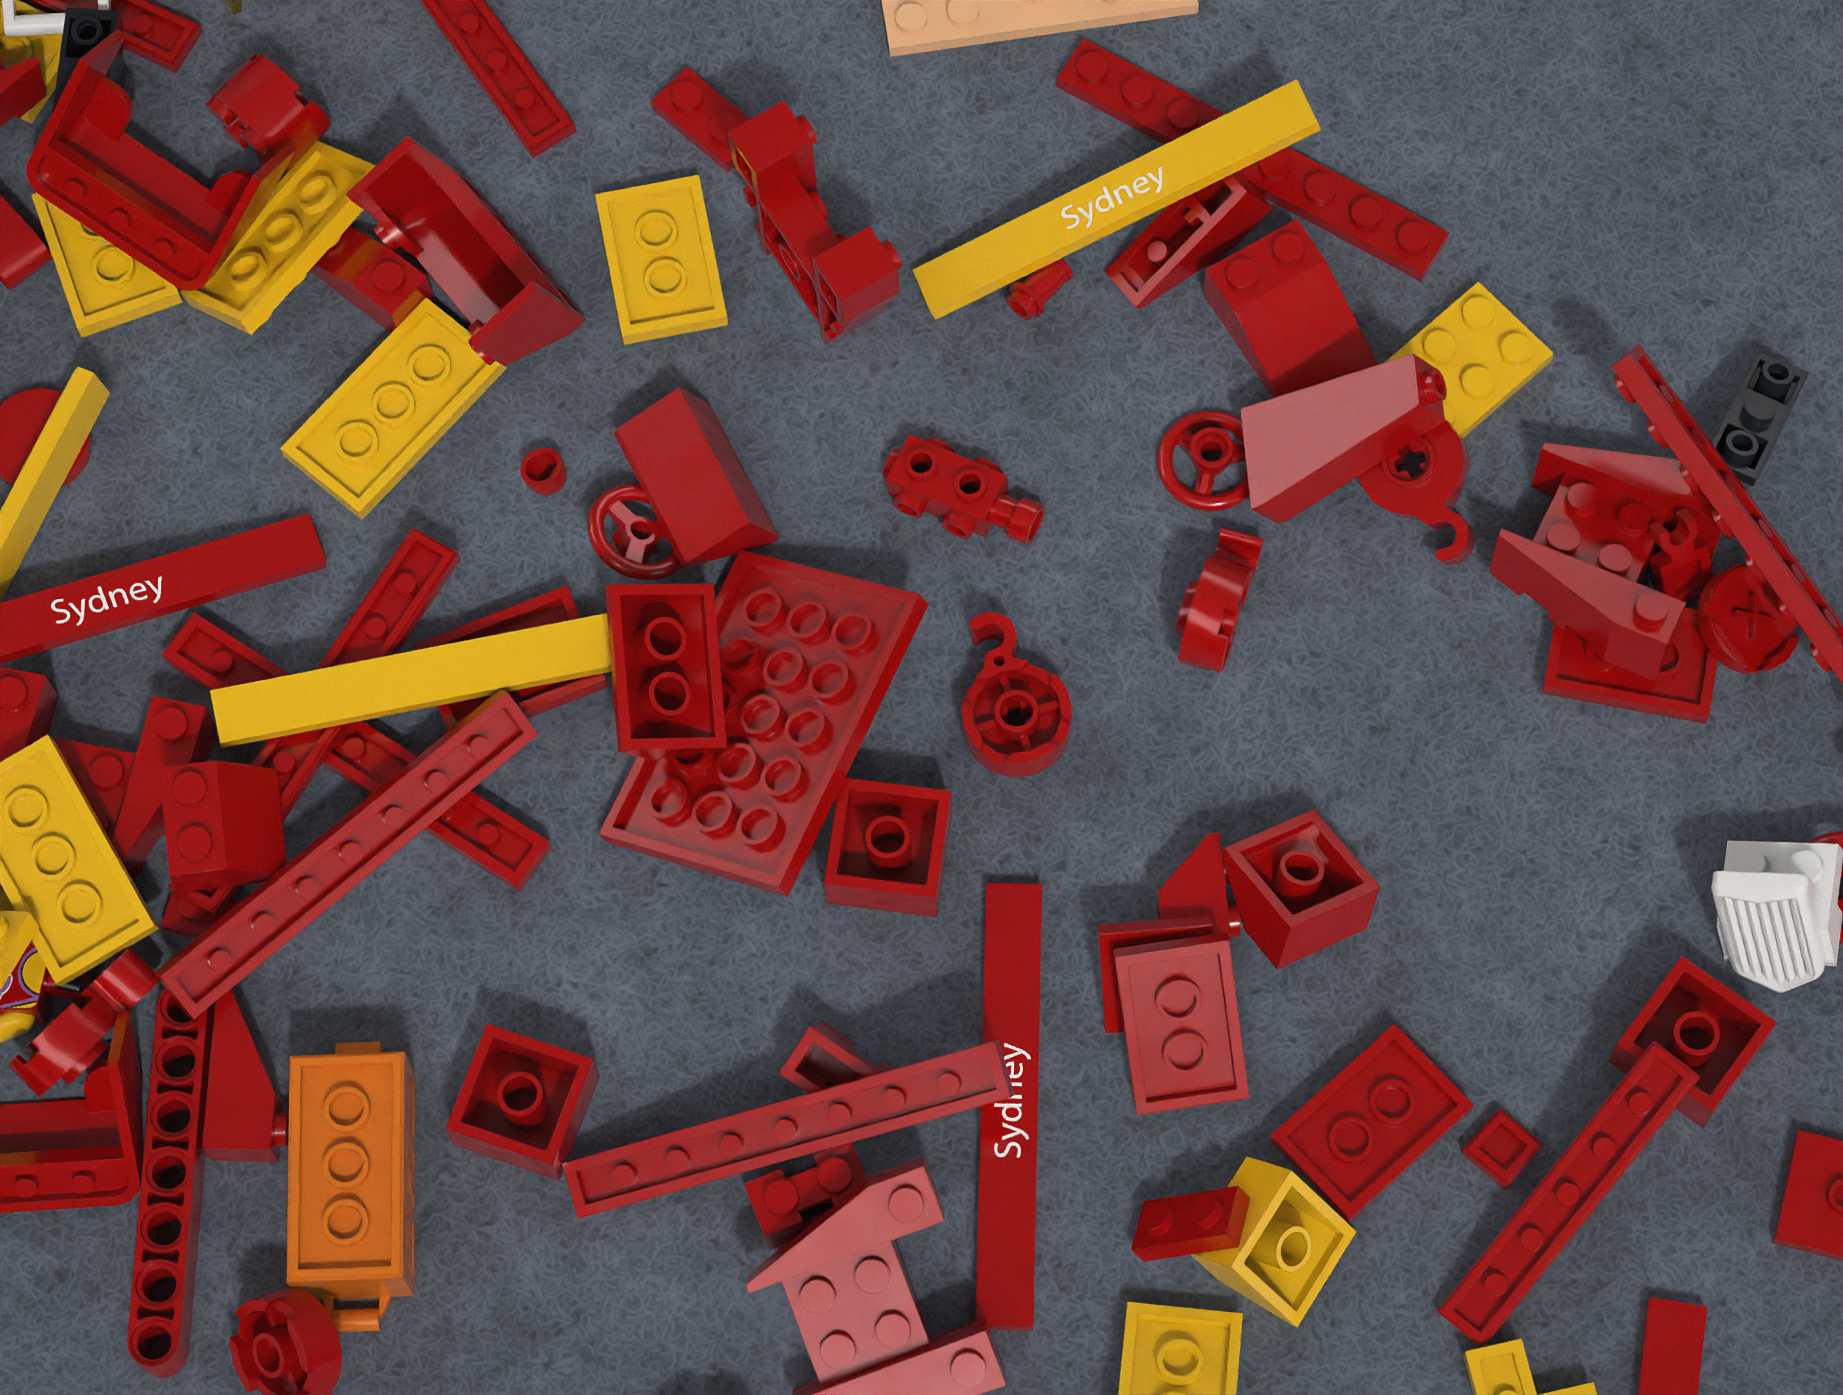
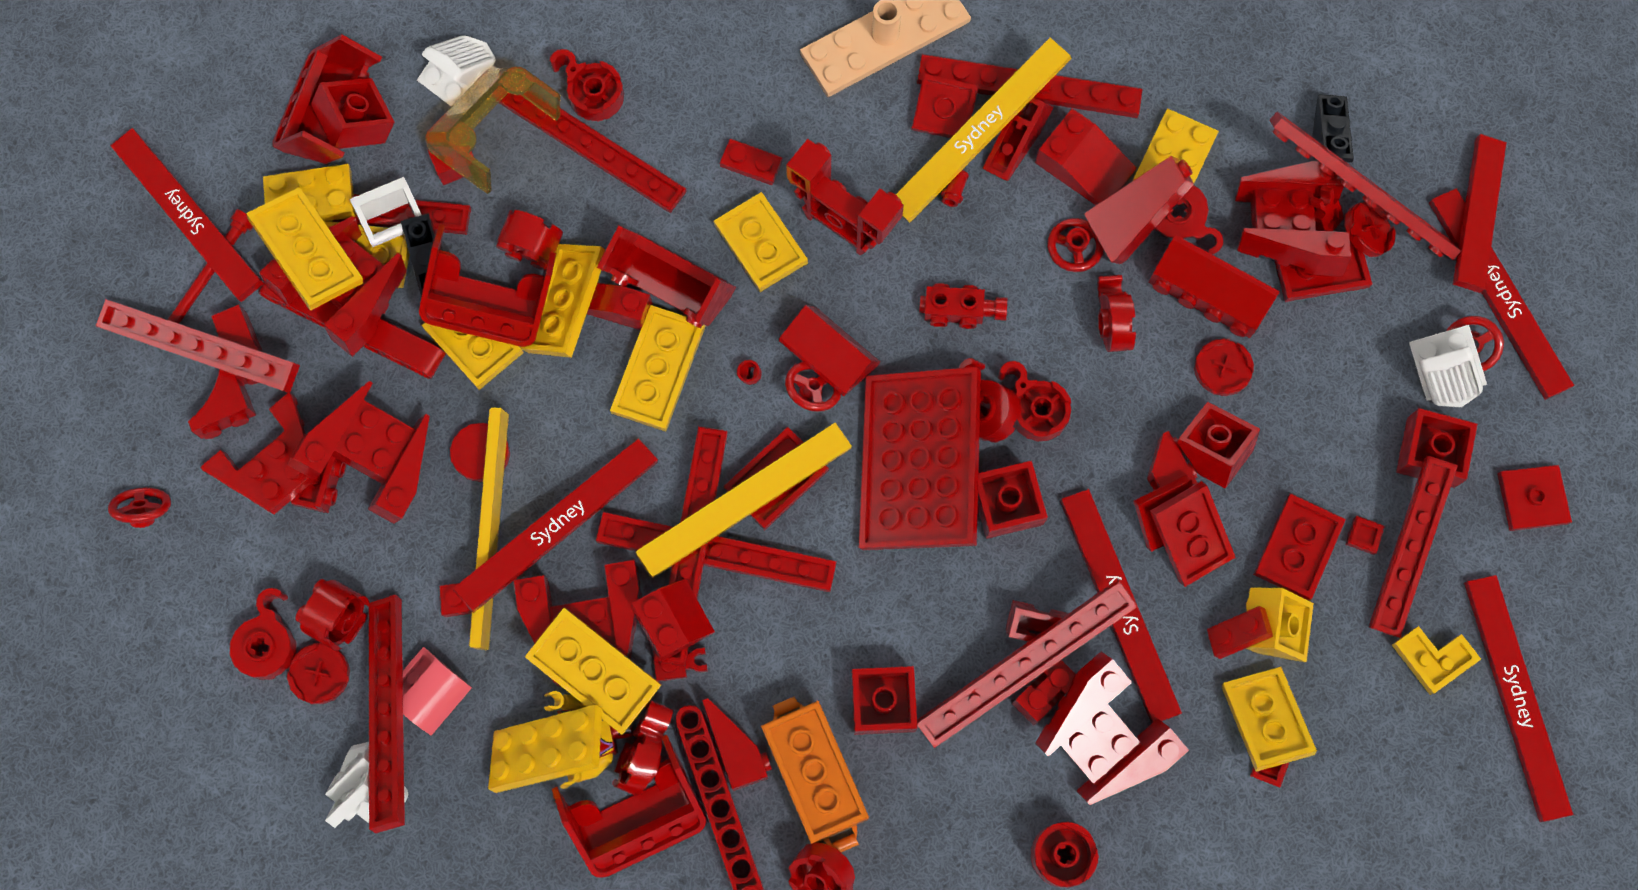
camera: 25 degrees left, 5 degrees up
(346, 854) = (740, 610): red plate -> none
(665, 669) = (864, 451): red slope -> none
(931, 678) = (999, 402): none -> red piece
(1080, 136) = (943, 106): none -> red plate
(1379, 766) = (1223, 367): none -> red tile
(1411, 617) = (1213, 287): none -> red slope

